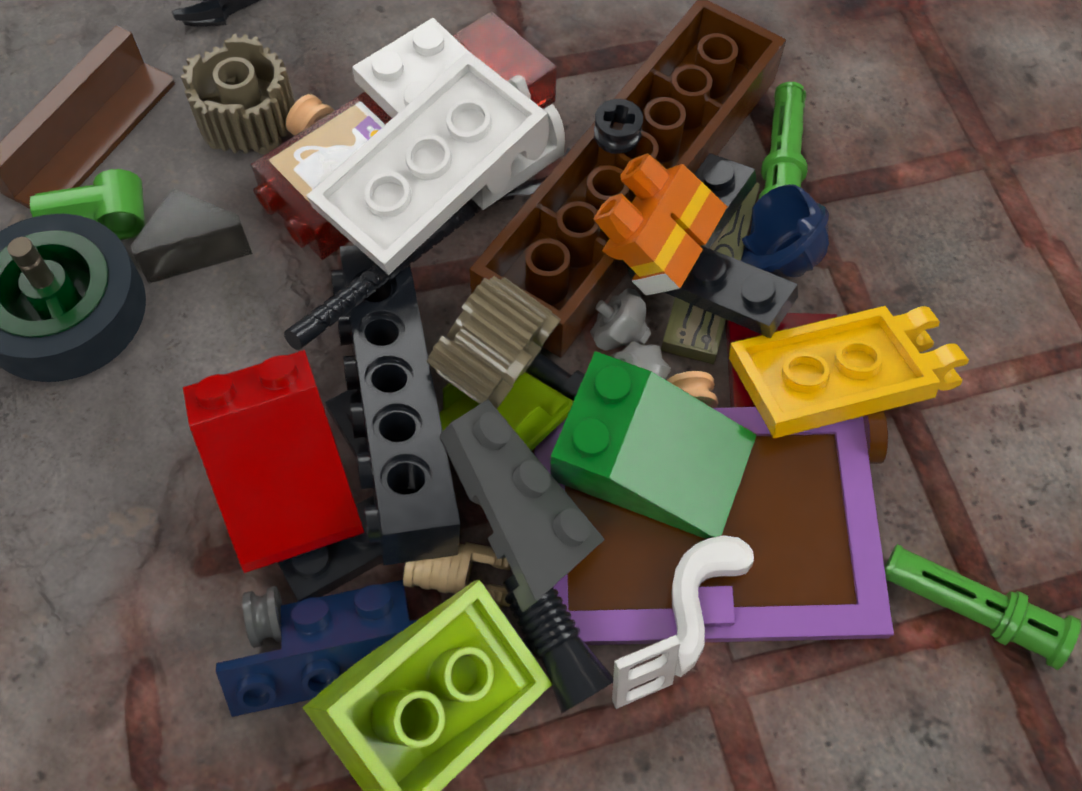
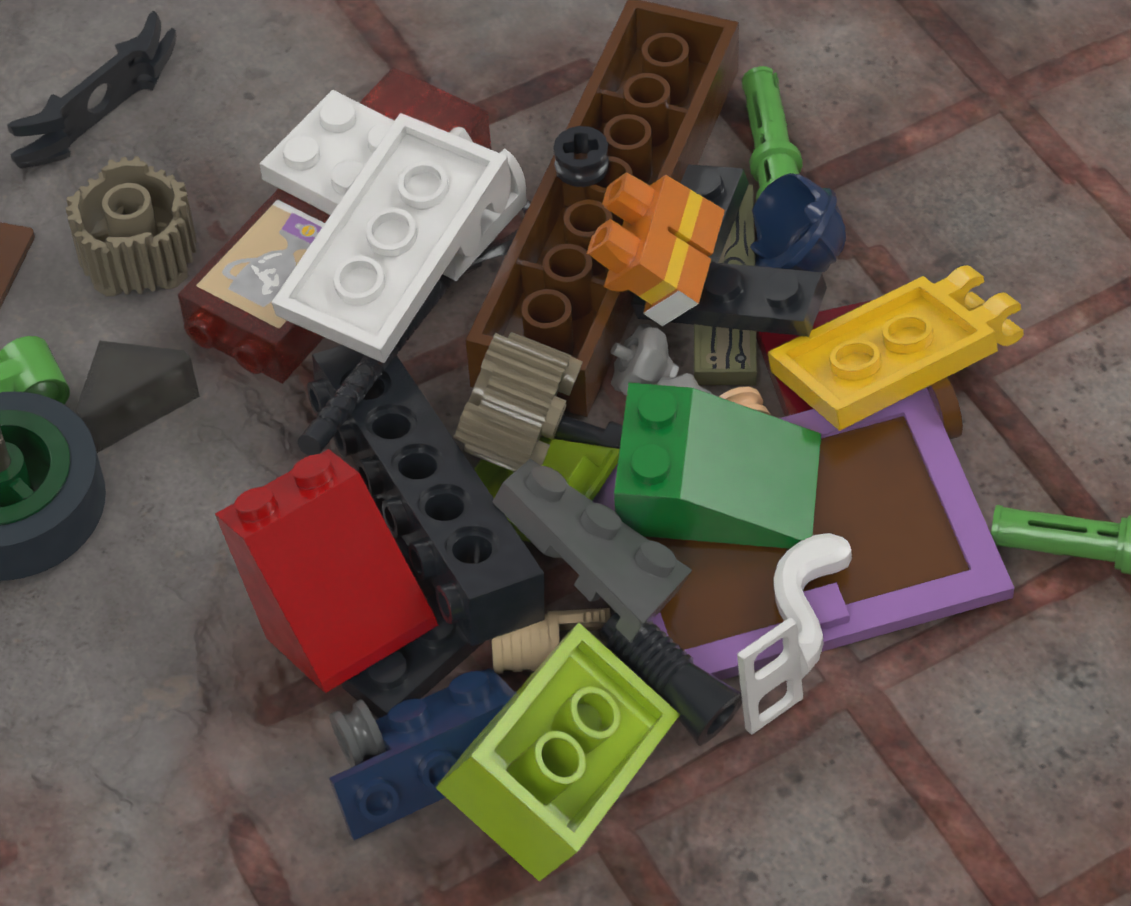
camera: 10 degrees left, 10 degrees down
(305, 113) = (215, 231): light nougat bush -> none

